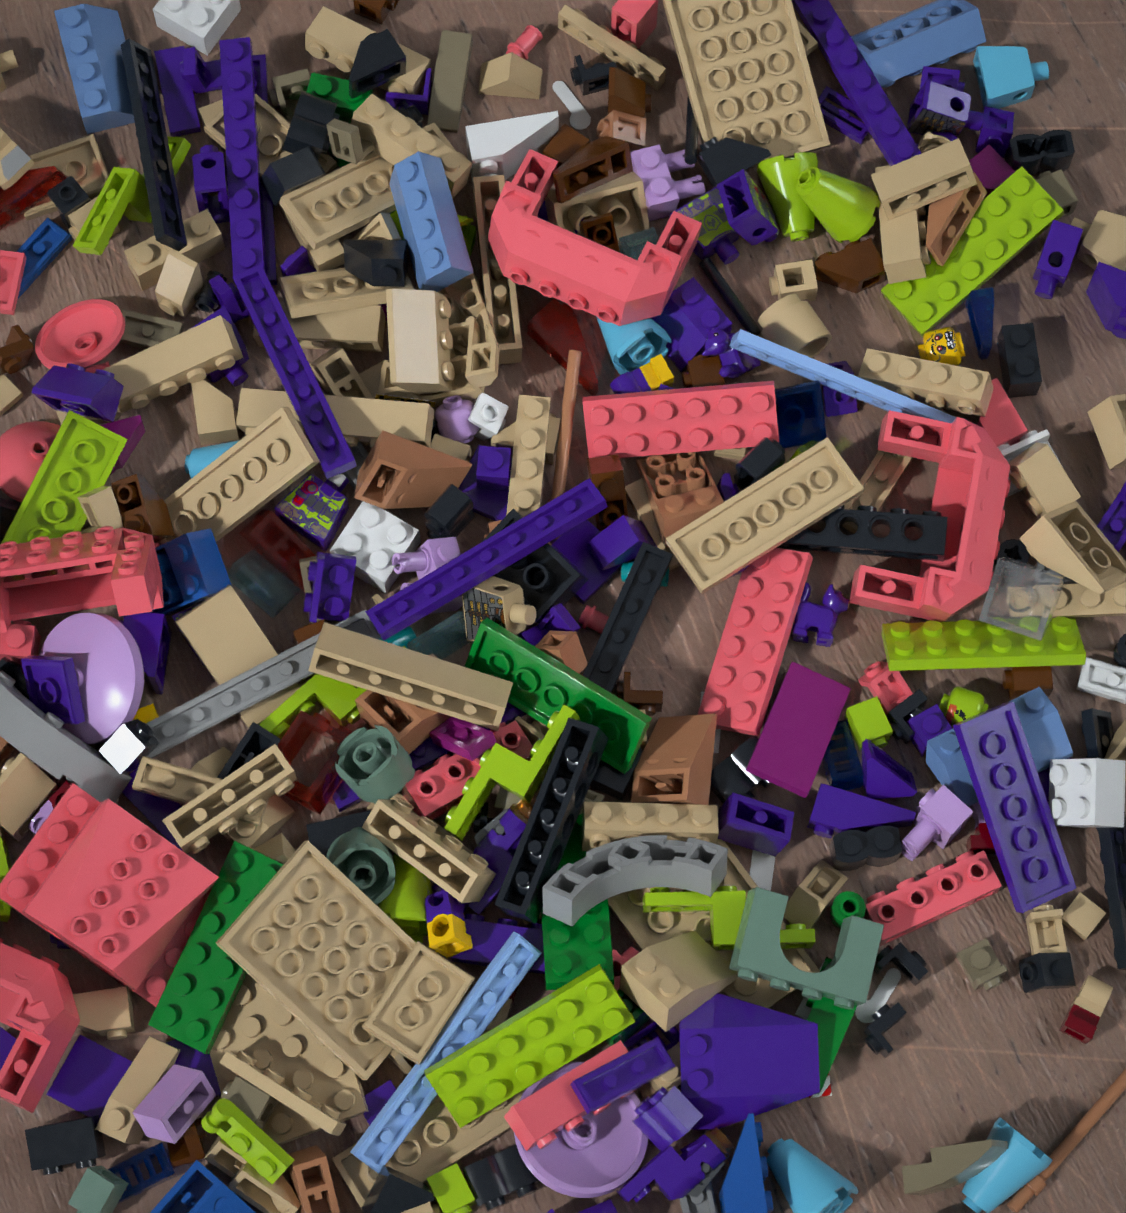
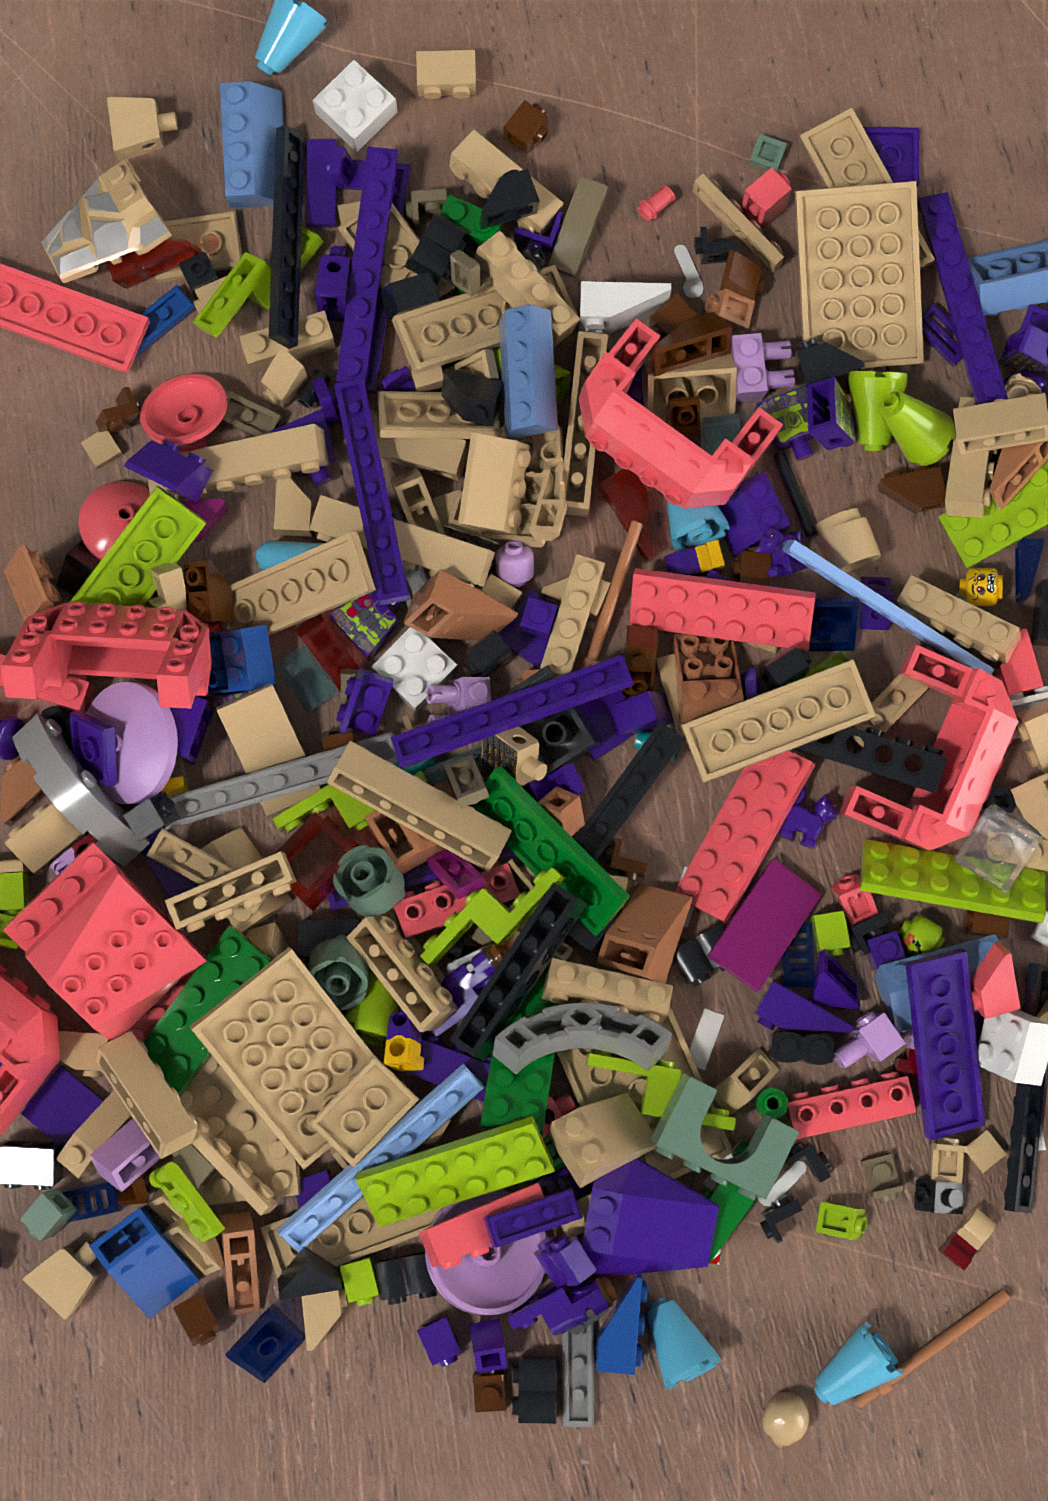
camera: 15 degrees right, 10 degrees up
(181, 1033) = (146, 1094): none -> tan brick
(252, 744) = (259, 844): black slope -> none
(454, 642) = (466, 781): none -> dark tan plate
(488, 416) = (544, 566): white bracket -> none
(510, 77) = (636, 233): tan slope -> none
(593, 619) = (601, 779): coral pin -> none
(691, 138) = (793, 330): black bar -> none
(754, 824) = (704, 1006): dark purple brick -> none
(797, 273) = (867, 487): tan brick -> none
(950, 1019) = (841, 1221): none -> lime bracket
(951, 1166) = (809, 1358): dark tan slope -> none
(1051, 732) = (994, 984): none -> coral slope

